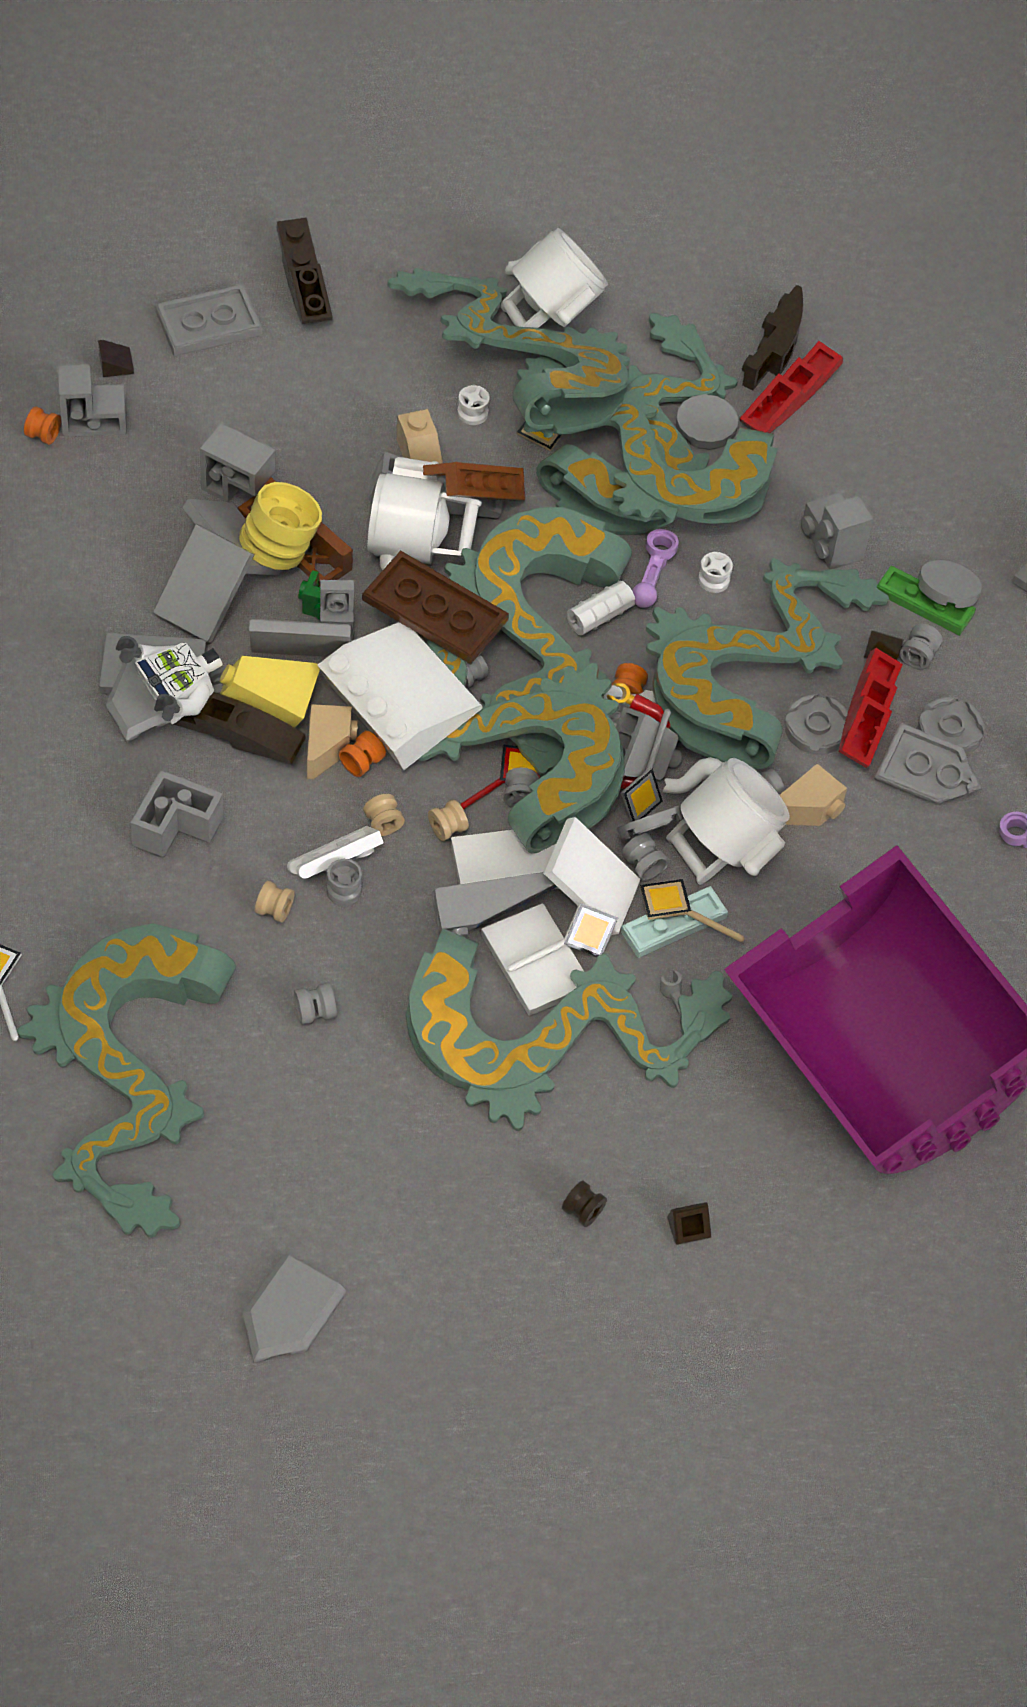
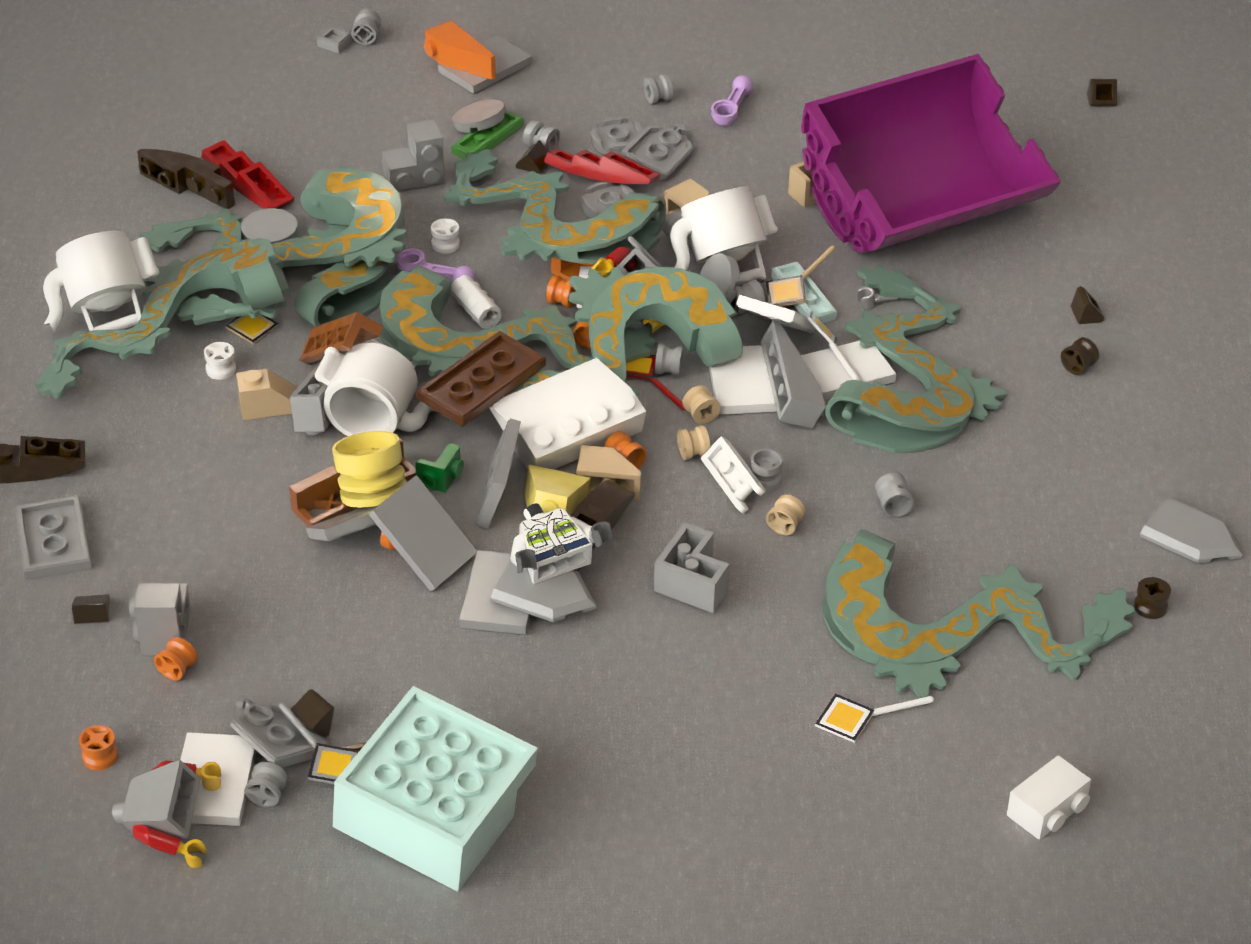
camera: 80 degrees left, 15 degrees down
(169, 1263) = (1152, 598): none -> dark brown wheel
(234, 463) = (273, 503): light grey brick -> none
(337, 602) = (470, 449): light grey slope -> none

